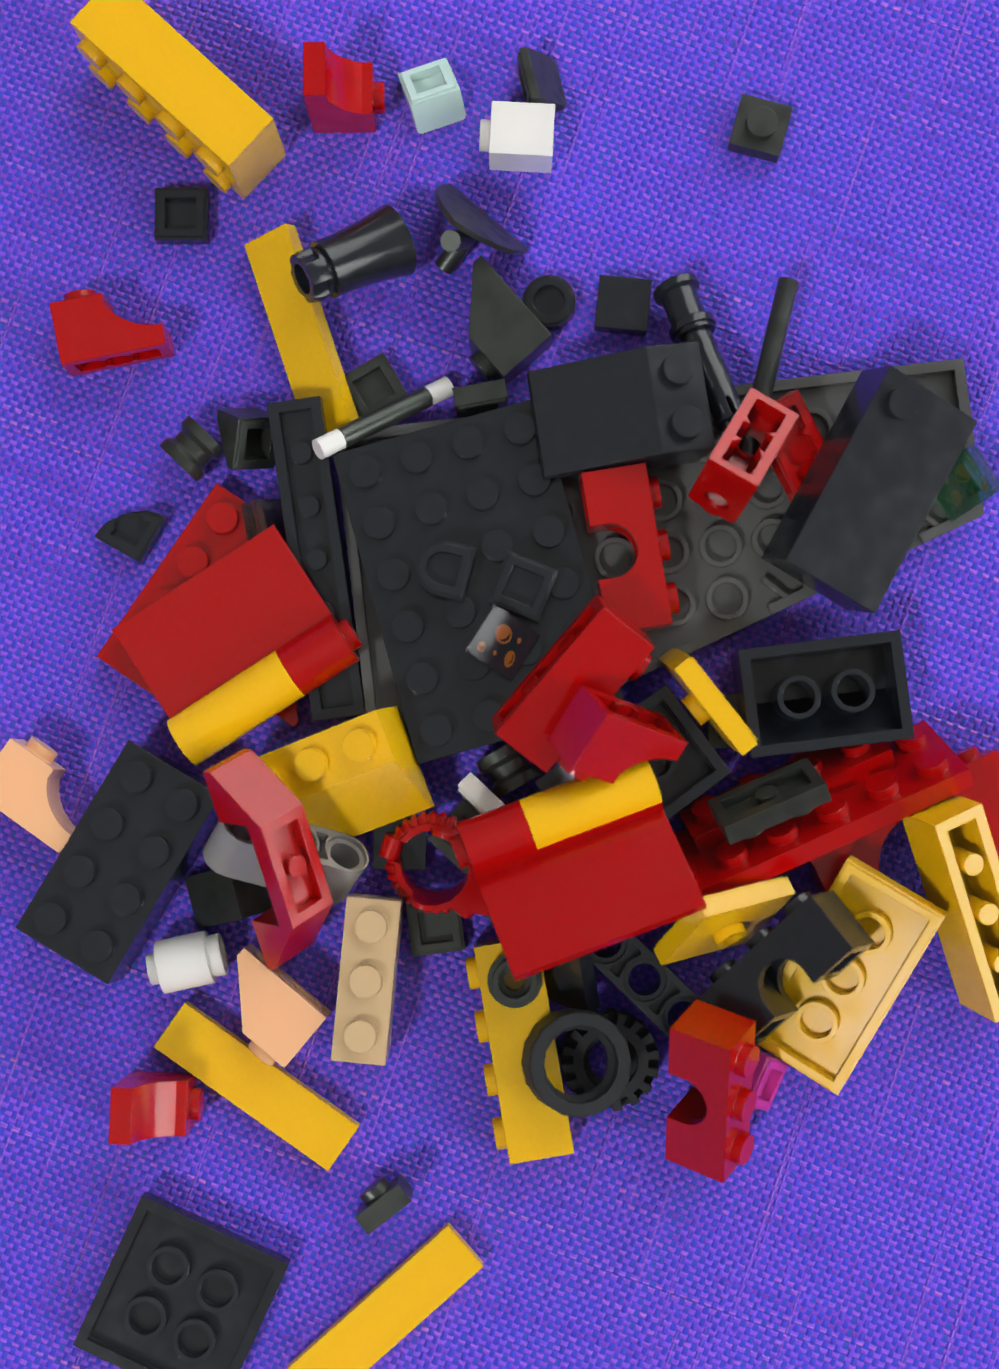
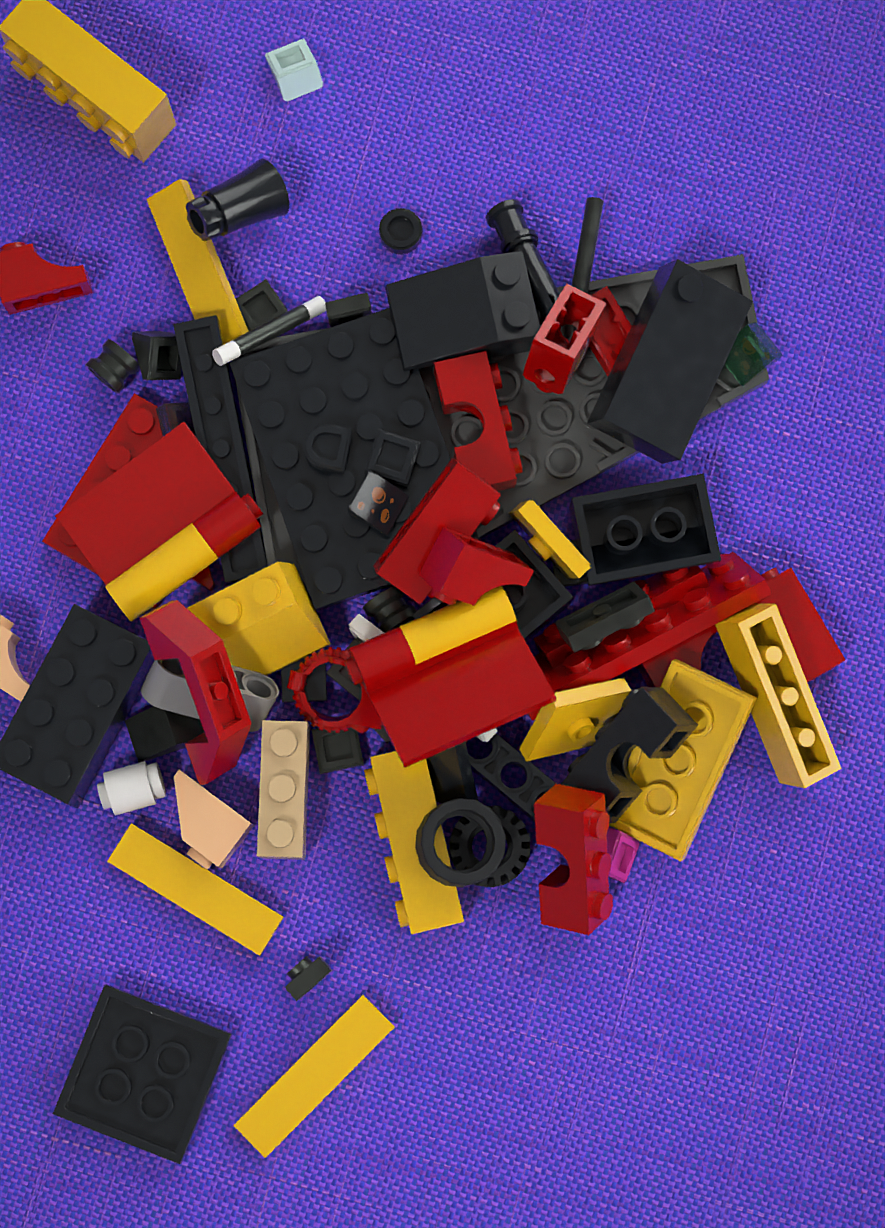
camera: 10 degrees left, 5 degrees down
(133, 533) = (67, 439): black tile -> none
(153, 1106) = (112, 906): red arch -> none
(182, 216) = (93, 179): black tile -> none
(340, 92) = (219, 71): red arch -> none
(471, 225) = (333, 171): shield -> none
(501, 327) = (363, 253): pearl dark grey slope -> none
(511, 997) = (401, 794): pearl dark grey plate -> none
(519, 136) = (367, 98): white brick -> none
(540, 78) = (382, 54): slope -> none
(622, 305) = (461, 229): black tile -> none
(759, 128) = (564, 80): pearl dark grey plate -> none

